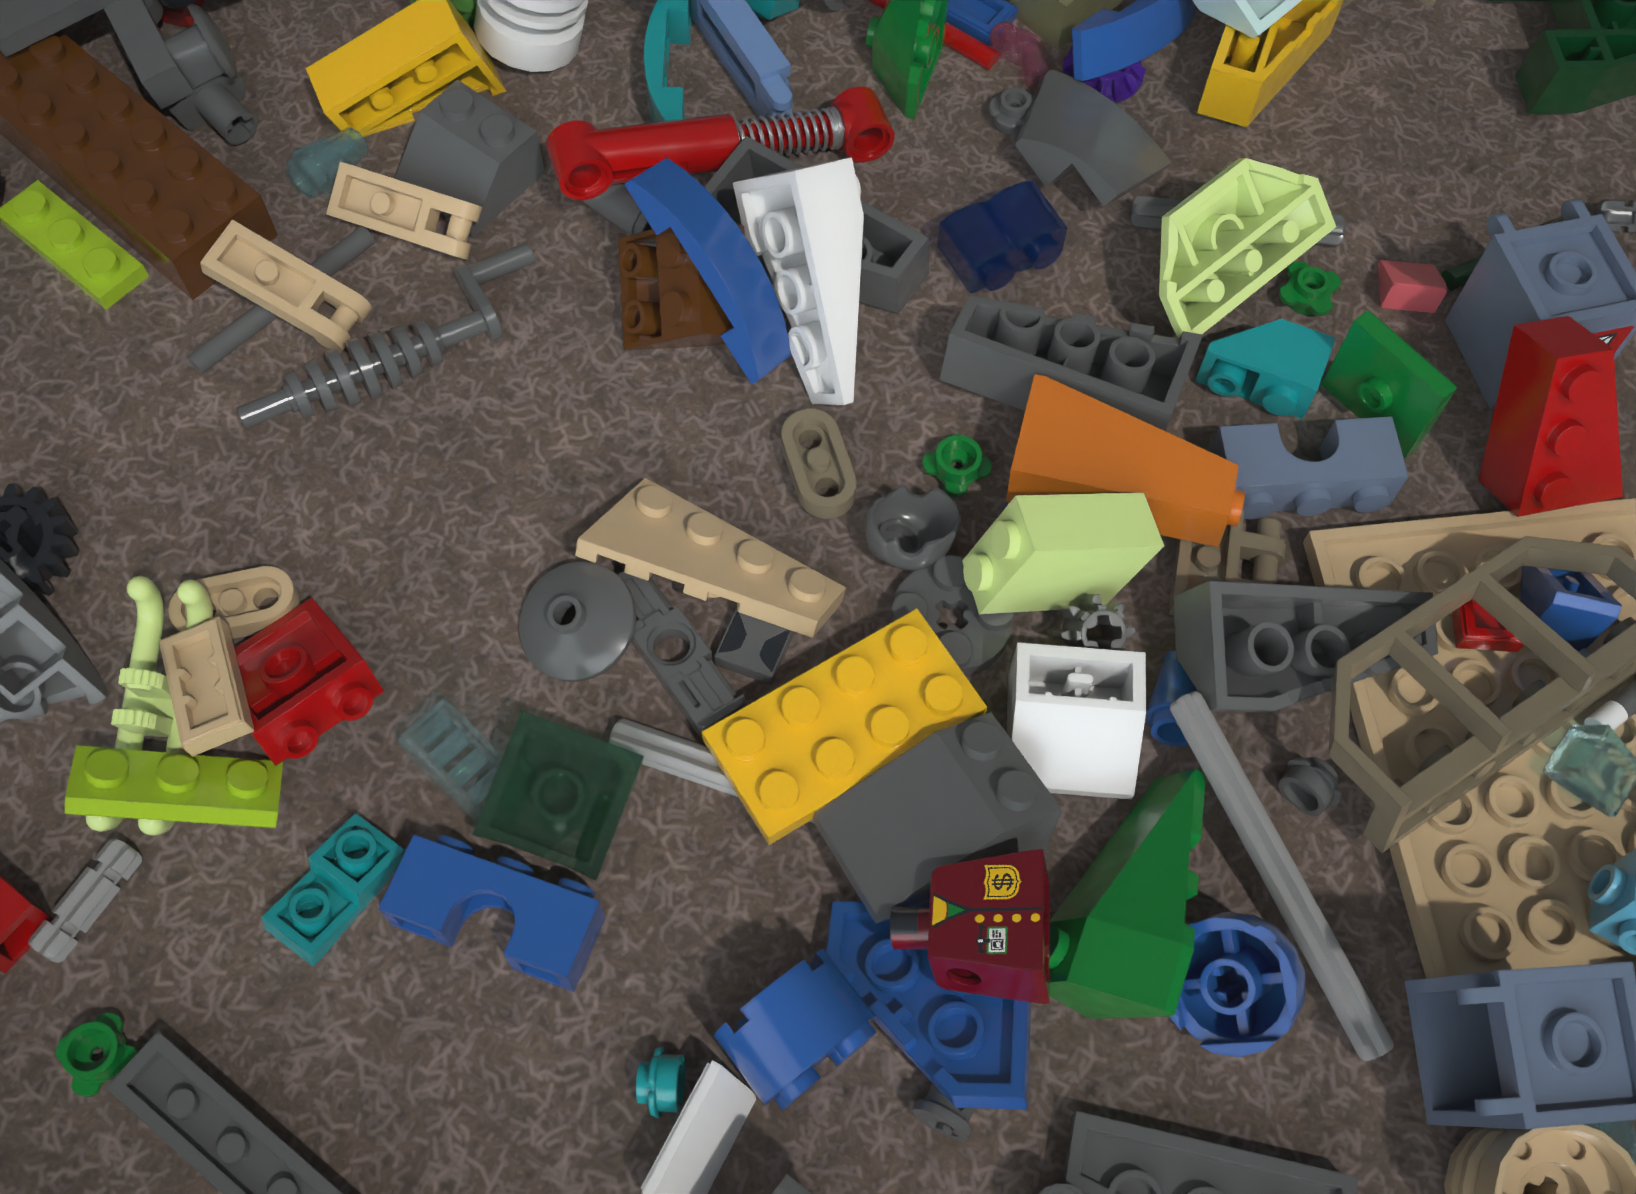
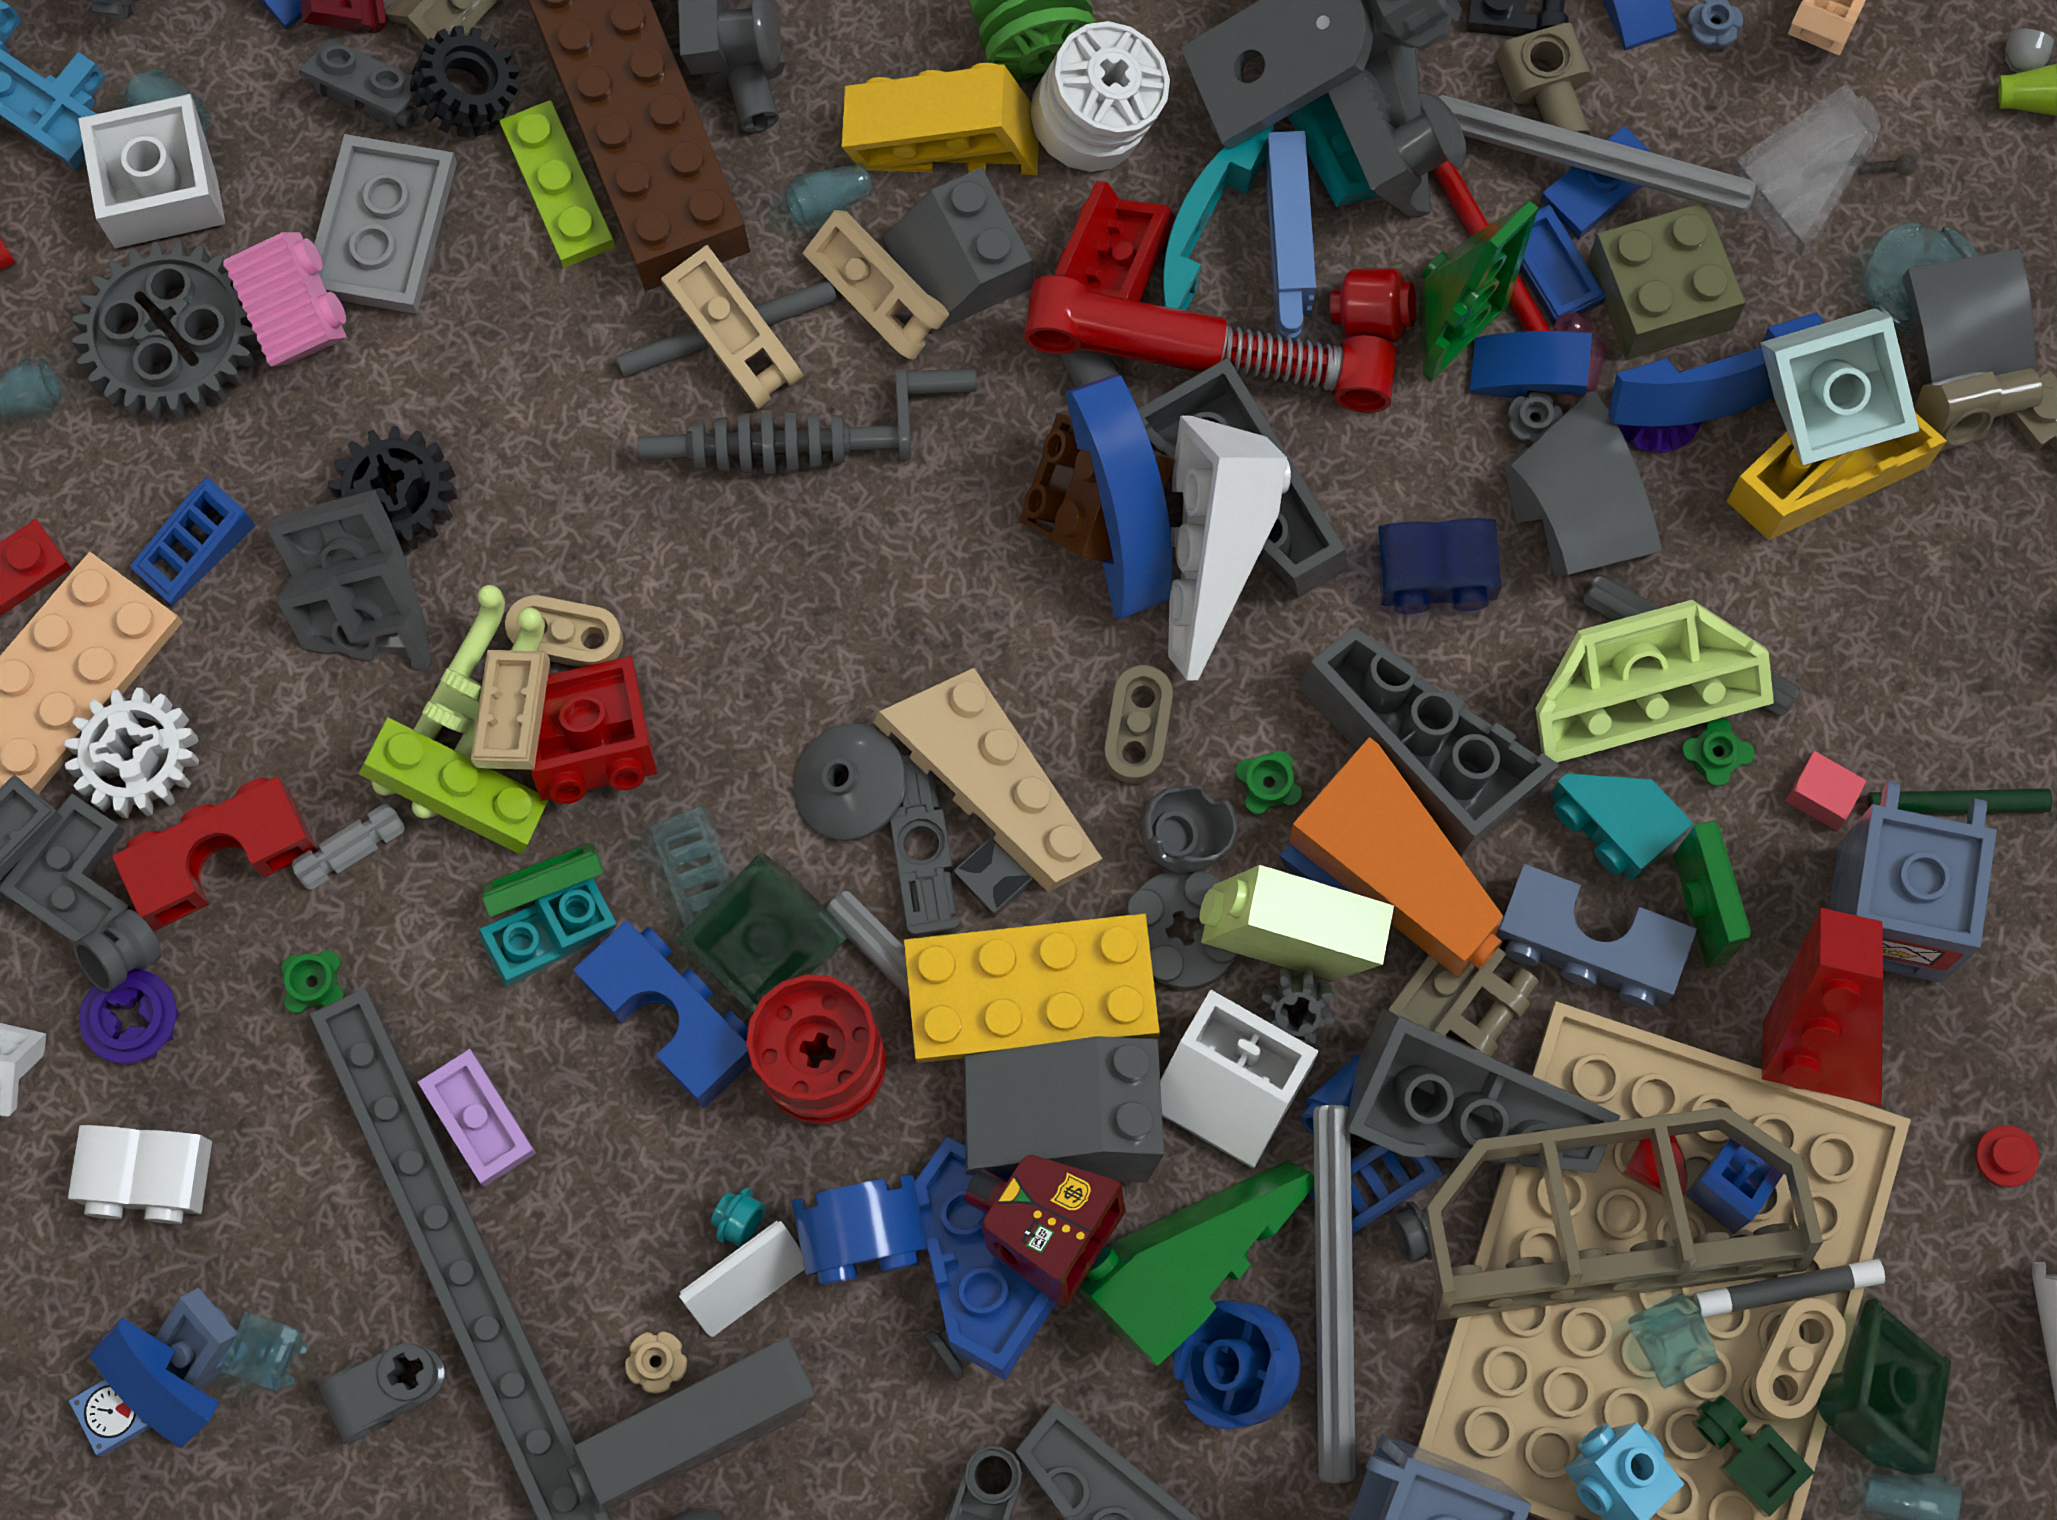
camera: 30 degrees right, 10 degrees up
(307, 839) = (541, 879): none -> green tile
(337, 1112) = (477, 1118): none -> lavender plate
(604, 98) = (1115, 243): none -> red bracket
(643, 844) = (800, 1021): none -> red wheel
(837, 67) = (1374, 303): none -> red head
(995, 63) = (1531, 361): none -> blue slope
(1283, 721) = (1429, 1169): none -> blue slope

